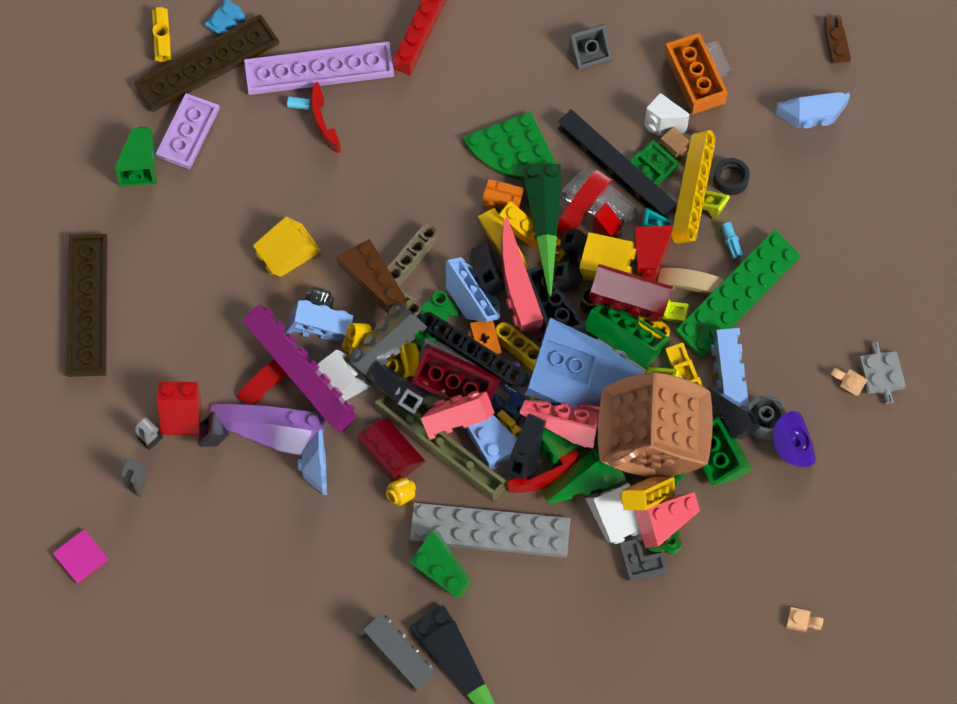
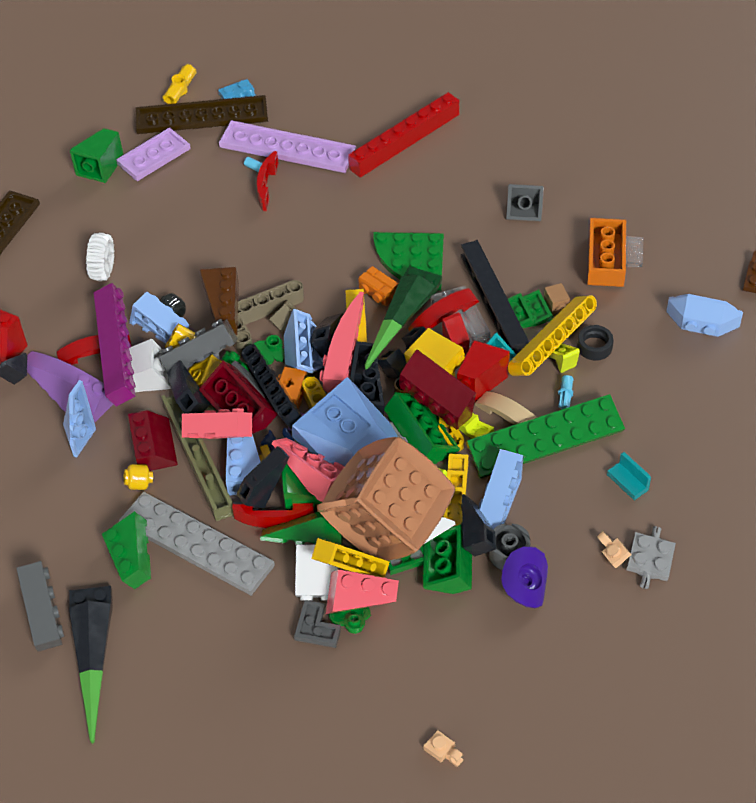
camera: 30 degrees right, 15 degrees down
(218, 276) = (100, 256): none -> white gear
(286, 247) = (172, 257): yellow slope -> none
(432, 266) = (282, 315): none -> dark tan panel
(524, 229) = (377, 310): yellow slope -> none
(664, 115) = (557, 269): white slope -> none
(828, 303) = (630, 477): none -> teal panel

